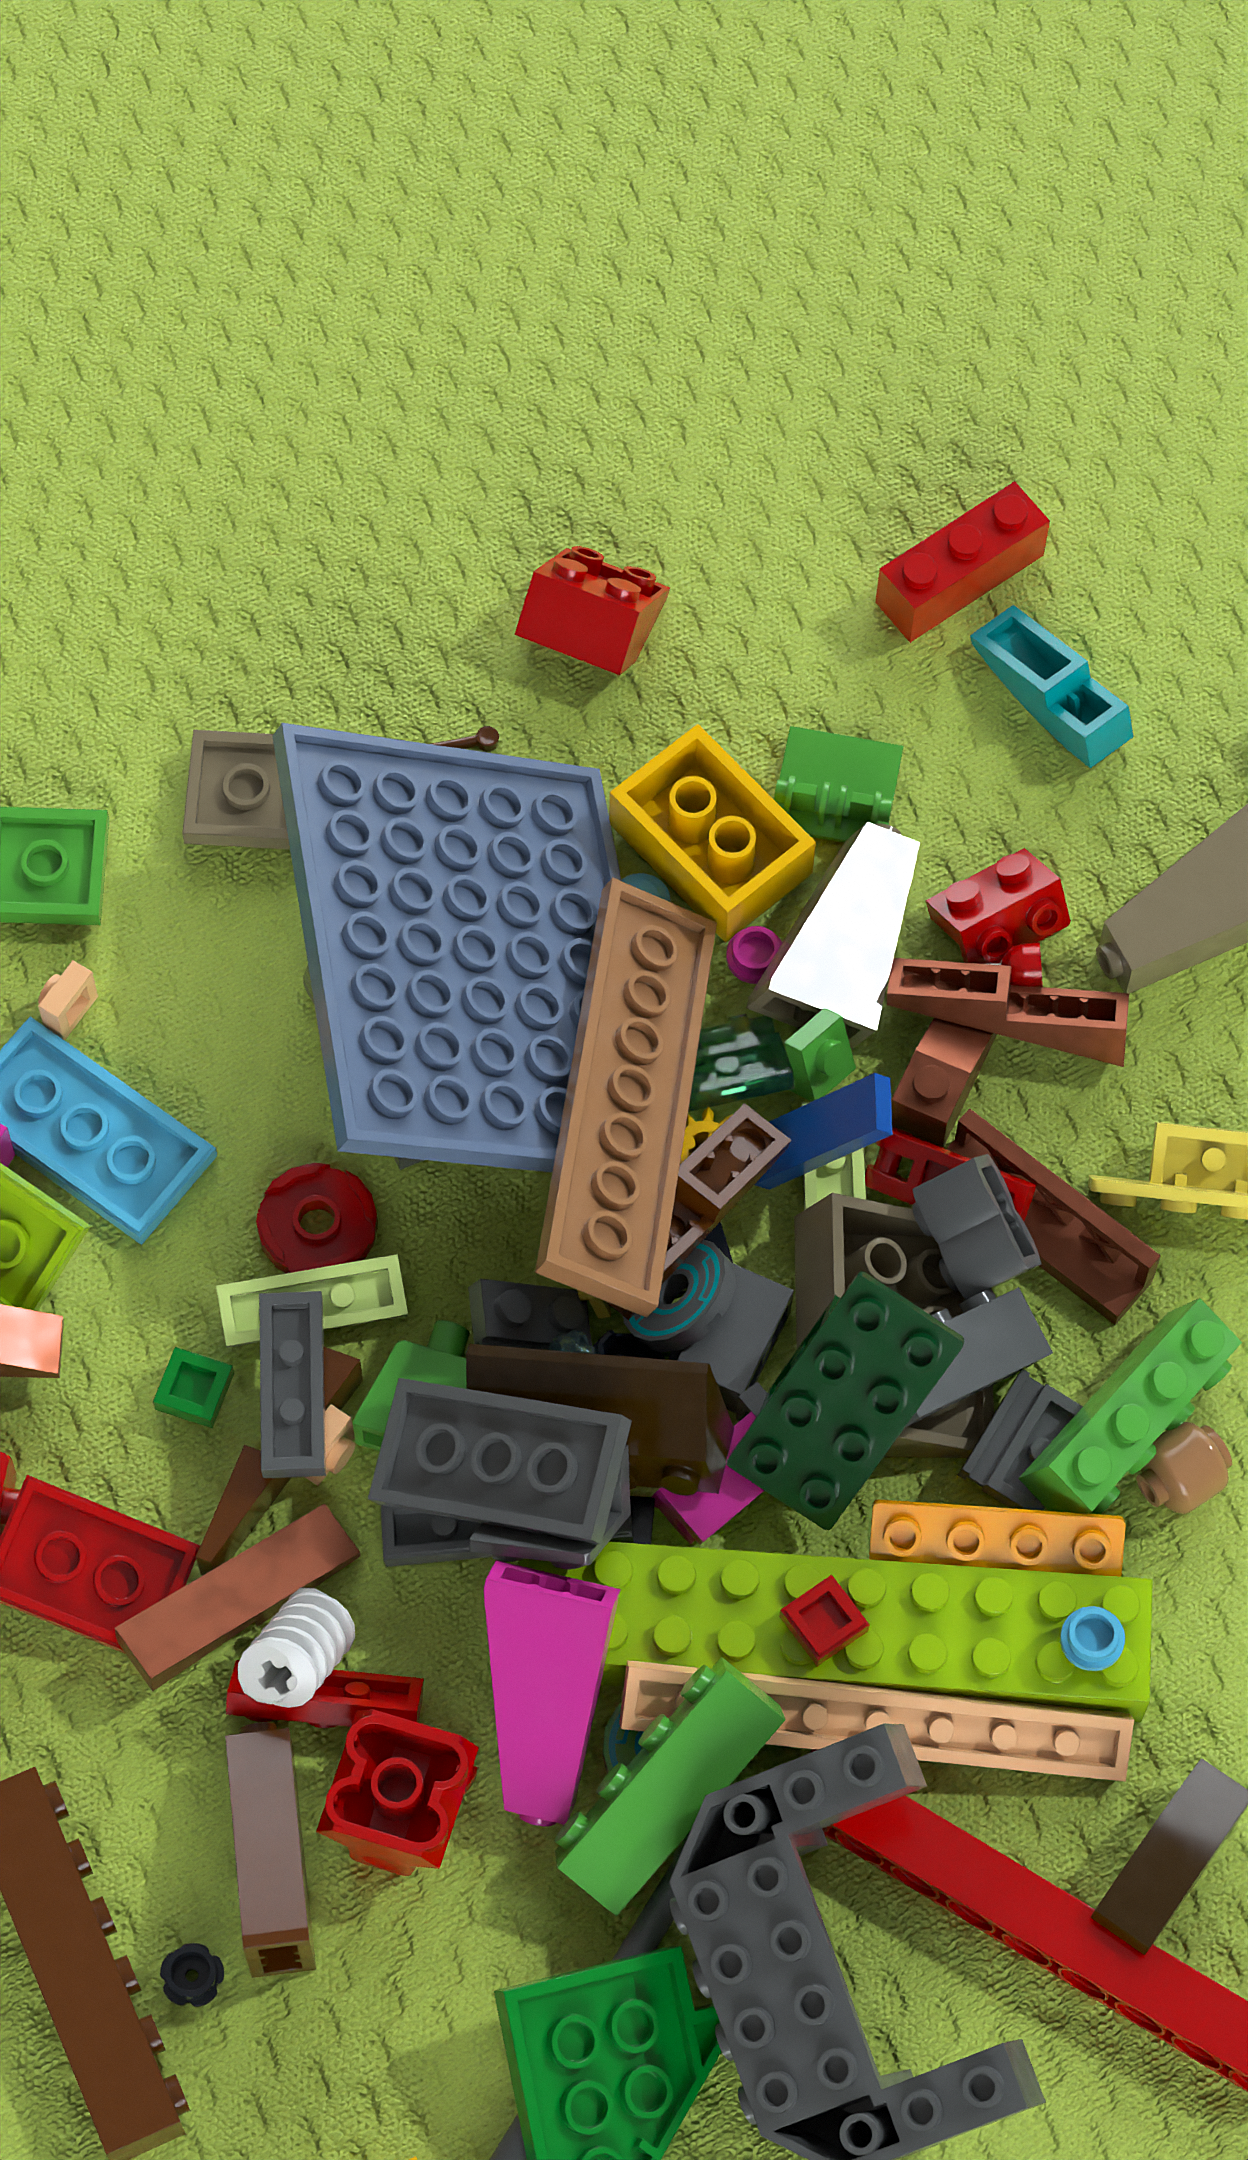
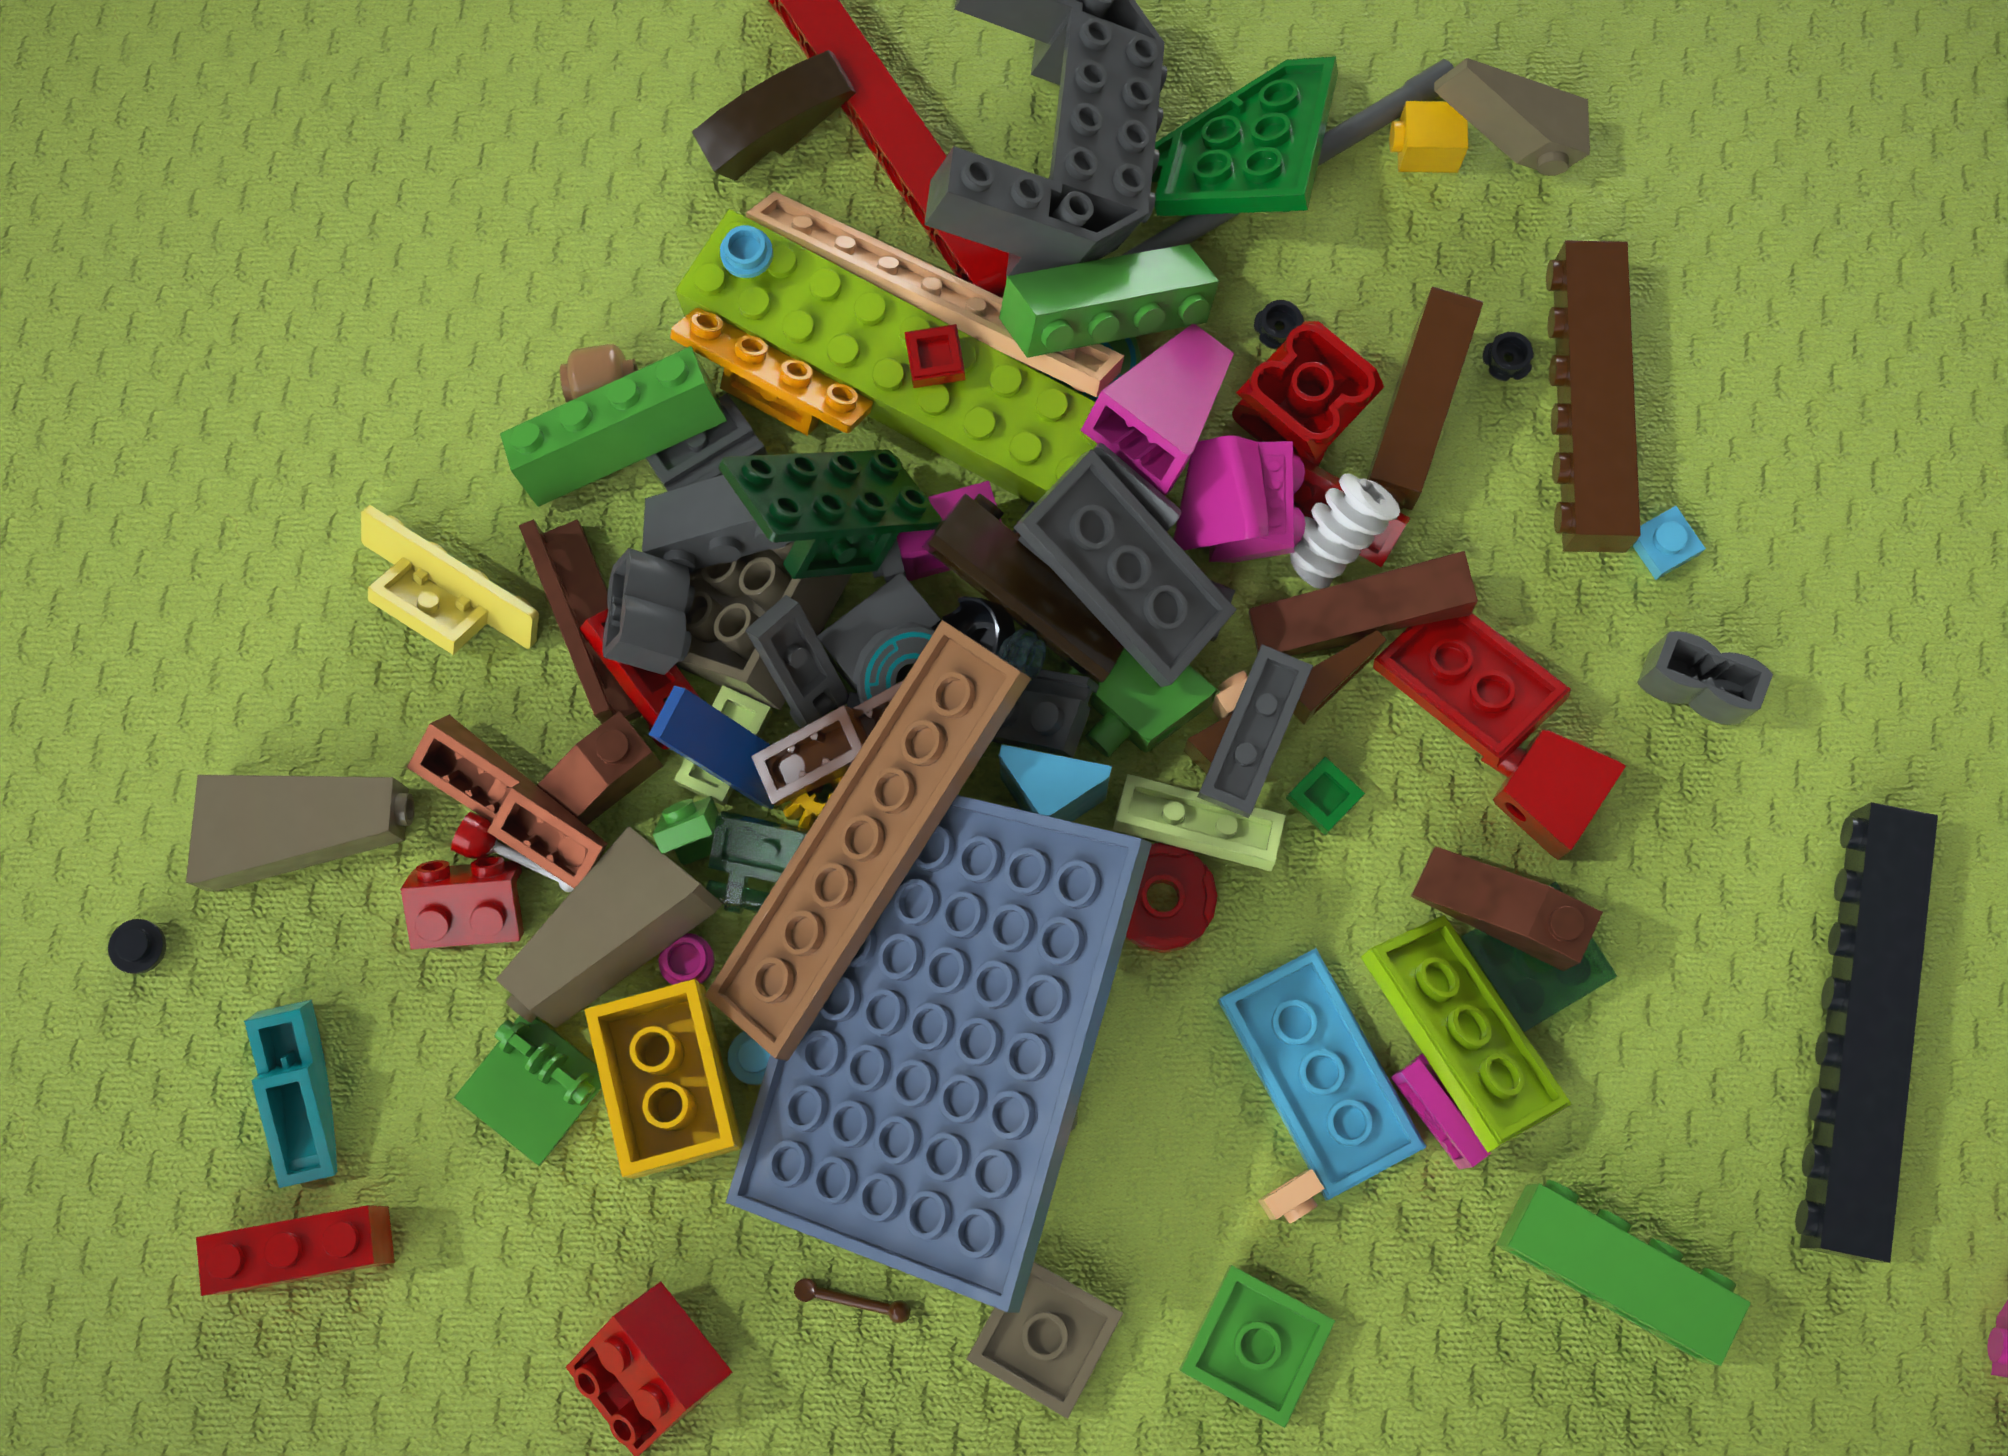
camera: 150 degrees left, 10 degrees up
(416, 1623) = (1241, 499): none -> dark pink piece
(465, 1875) = (1277, 312): none -> black plate
(476, 1242) = (1053, 783): none -> medium azure slope
(795, 1240) = (797, 662): none -> dark grey plate

